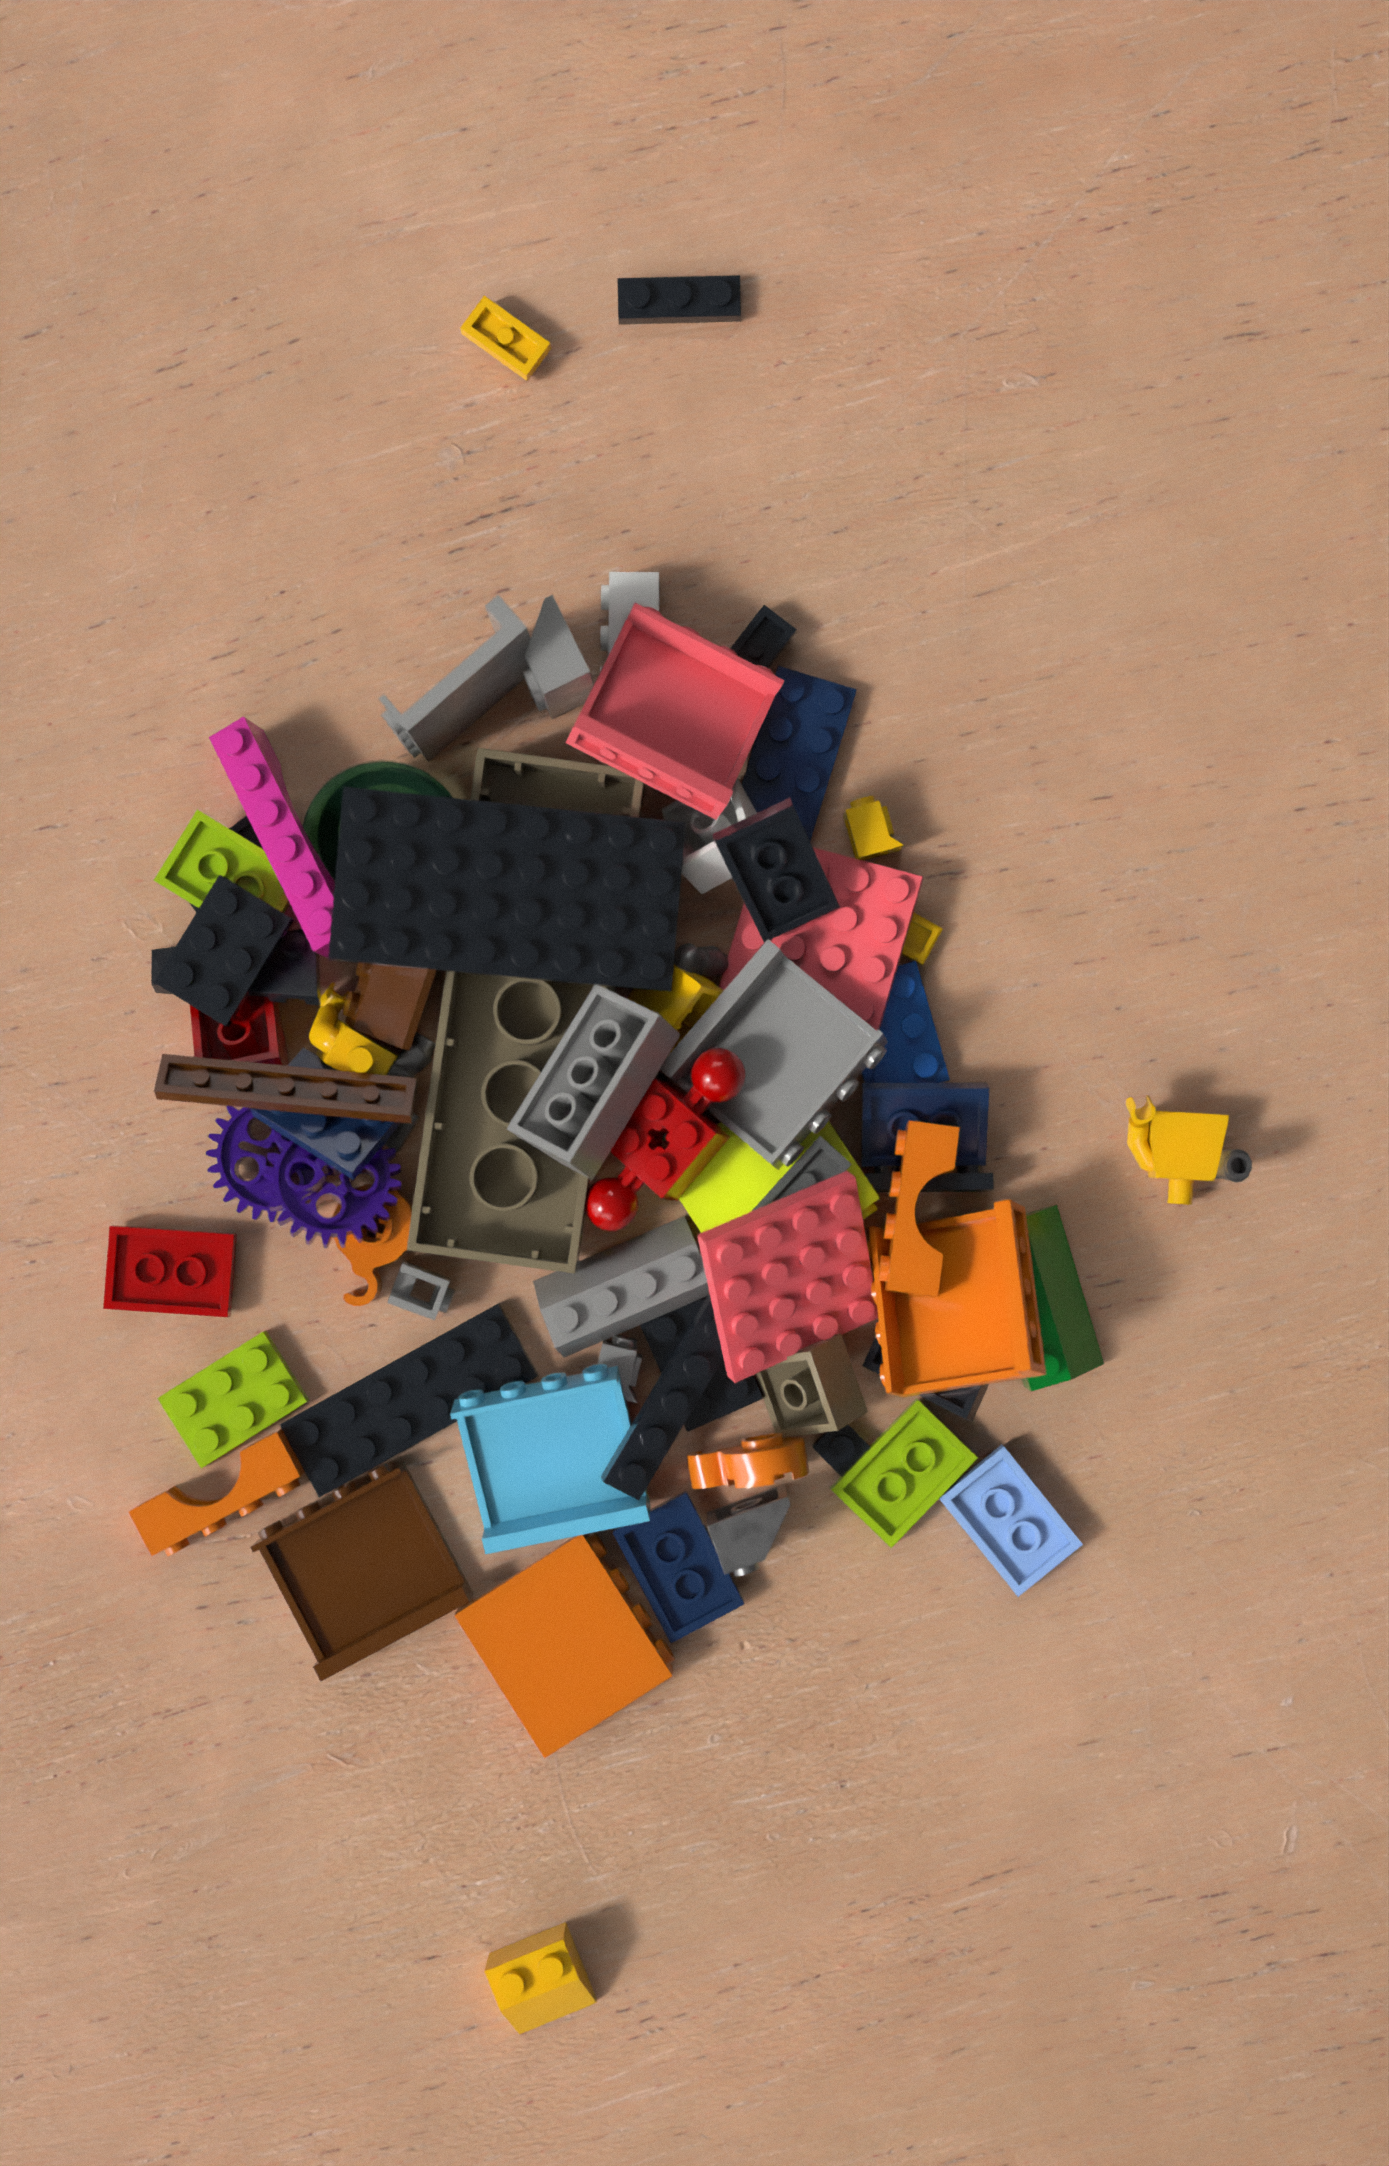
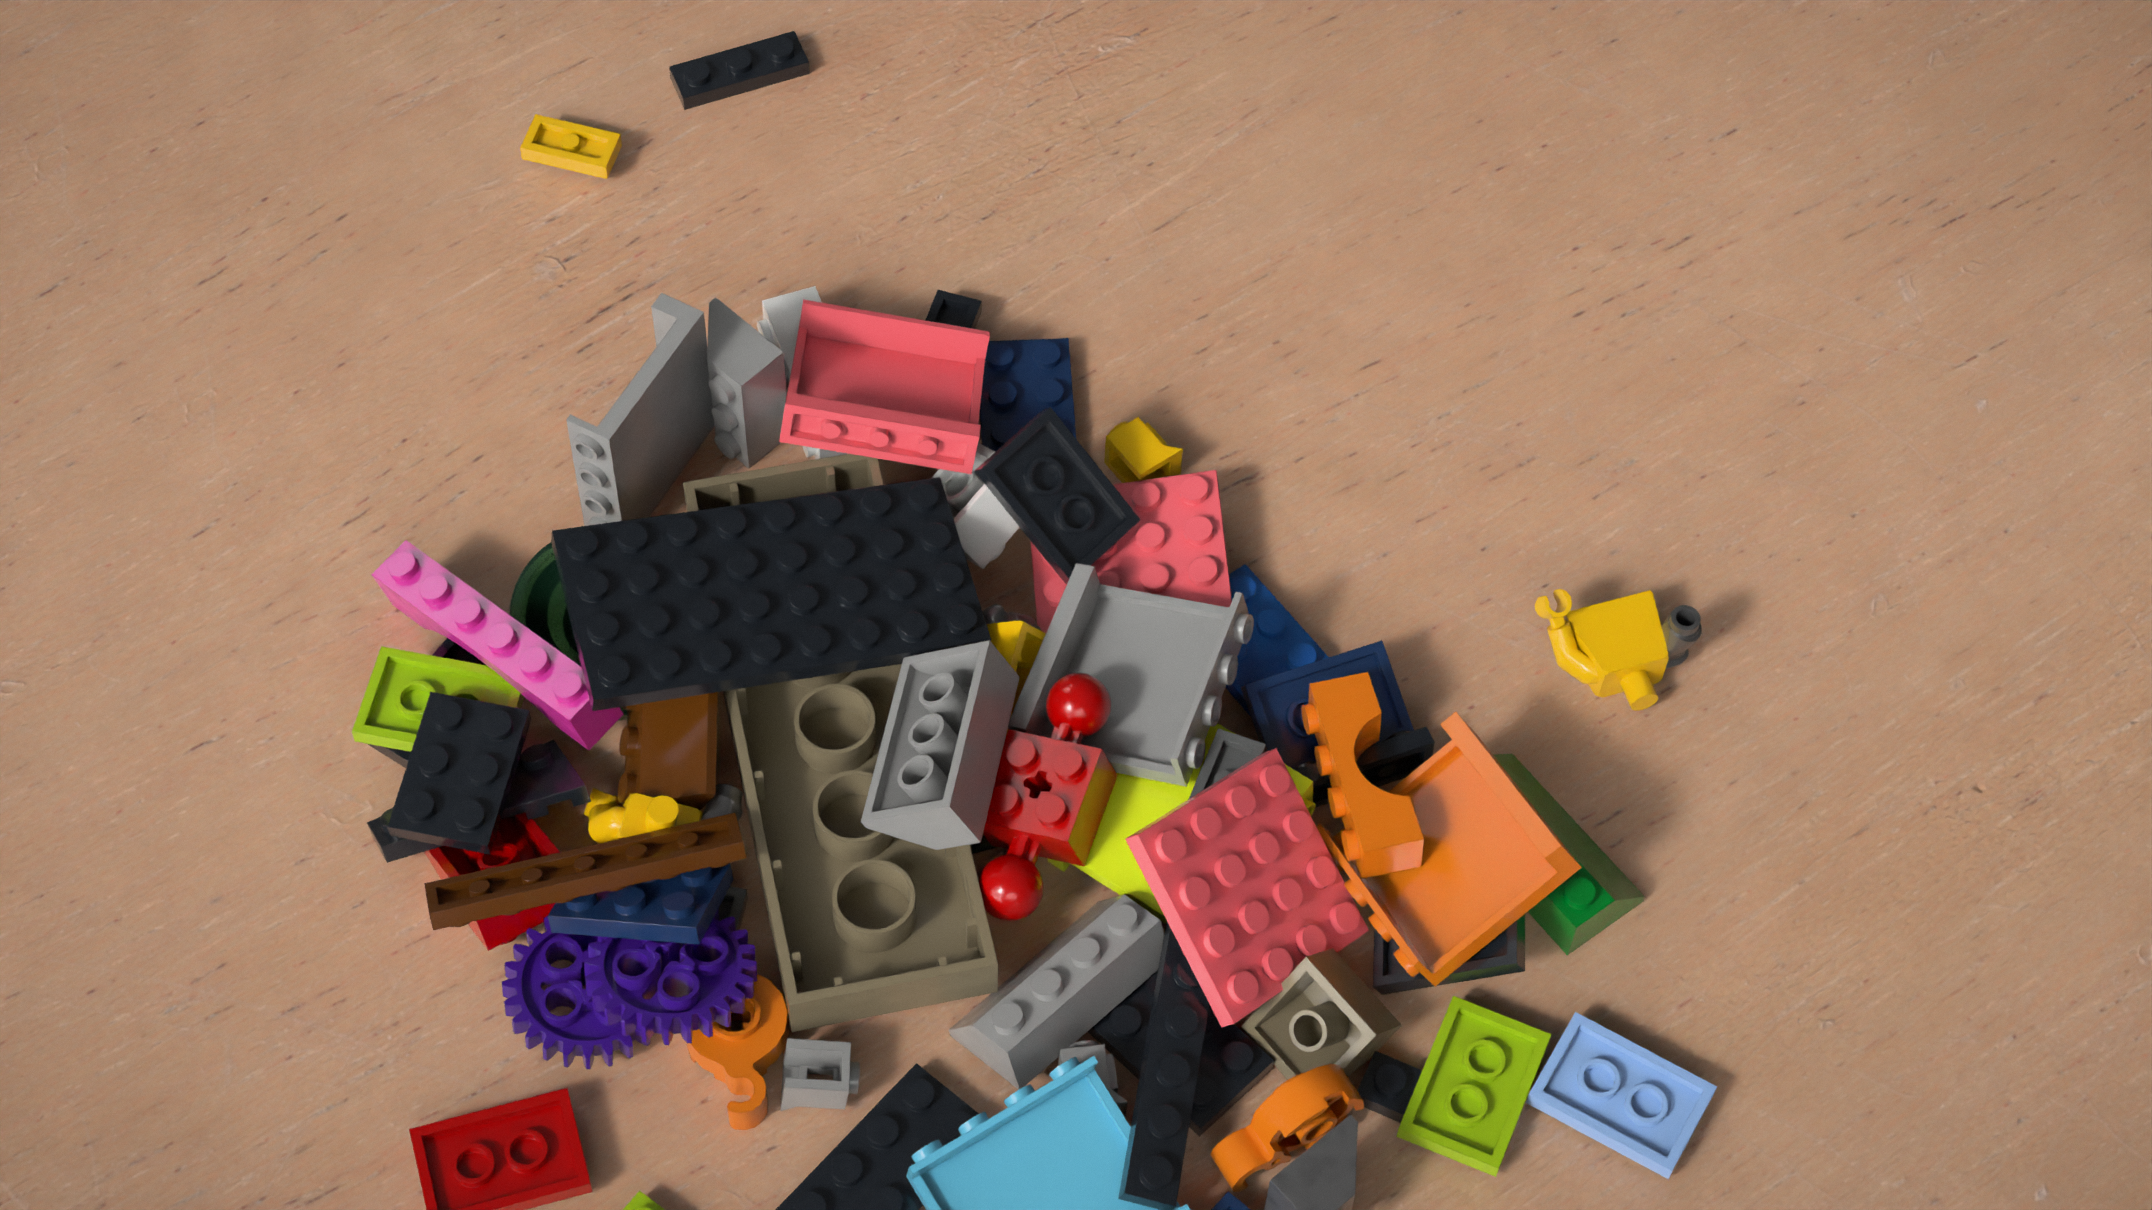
camera: 25 degrees left, 30 degrees down
(920, 939) = (1241, 544): yellow tile -> none

